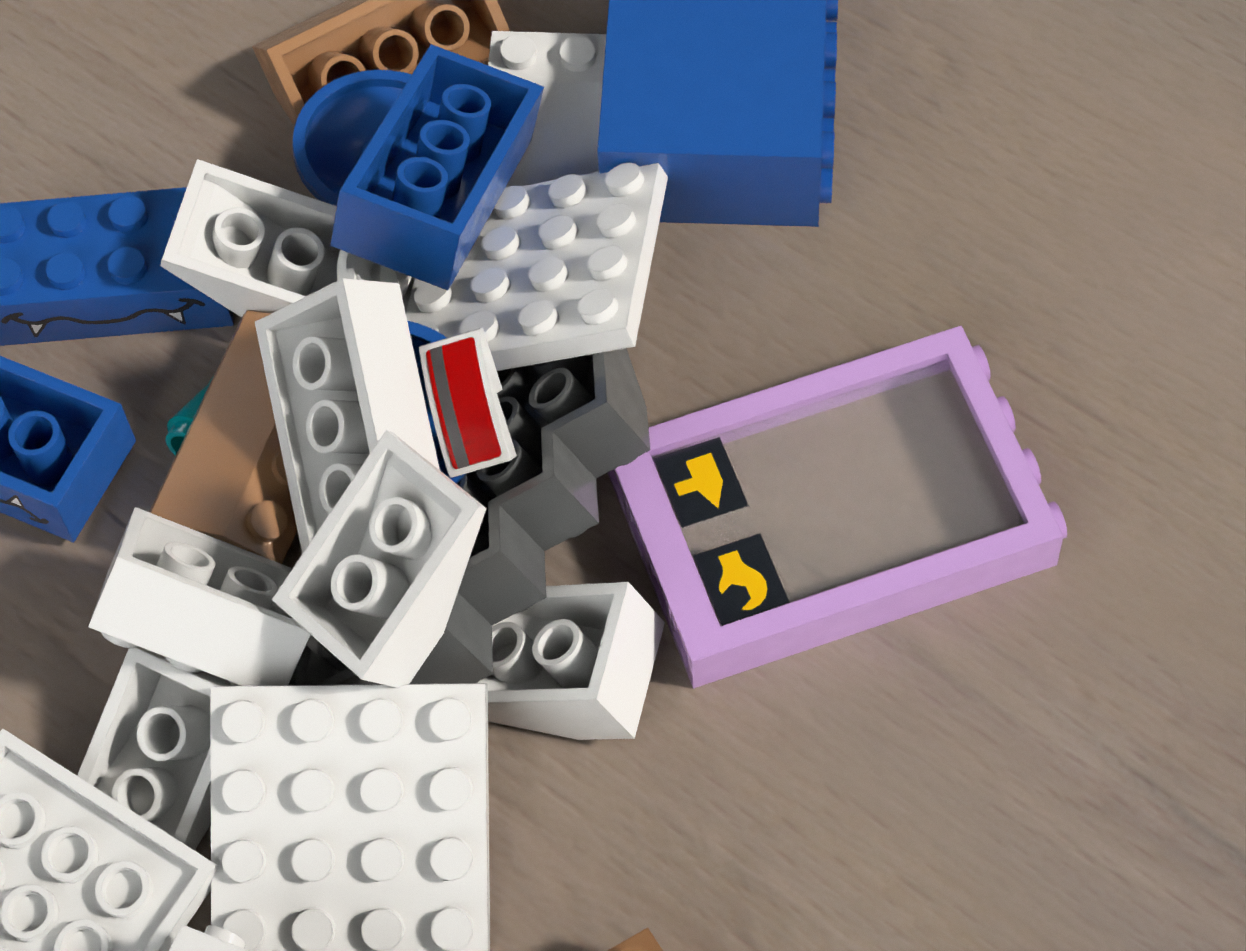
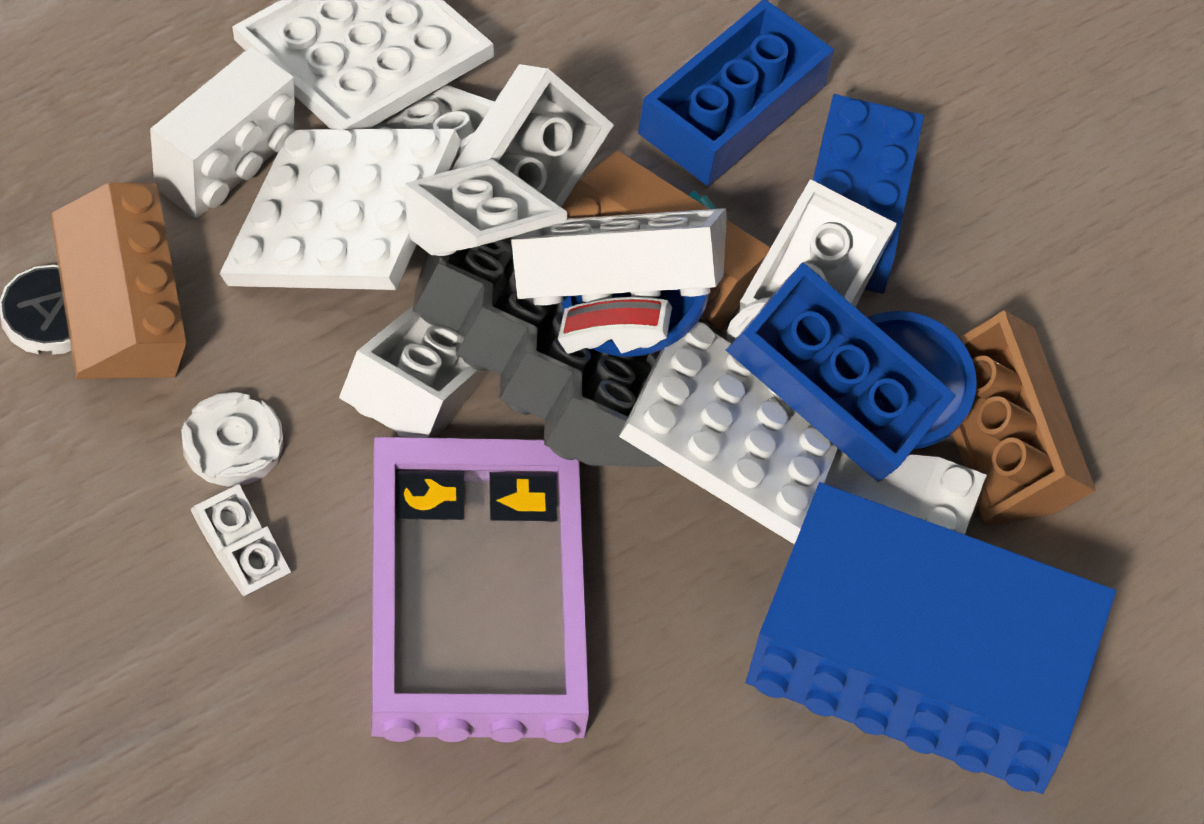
camera: 95 degrees right, 5 degrees down
(731, 856) = (232, 439): none -> white tile
(875, 789) = (240, 541): none -> white slope

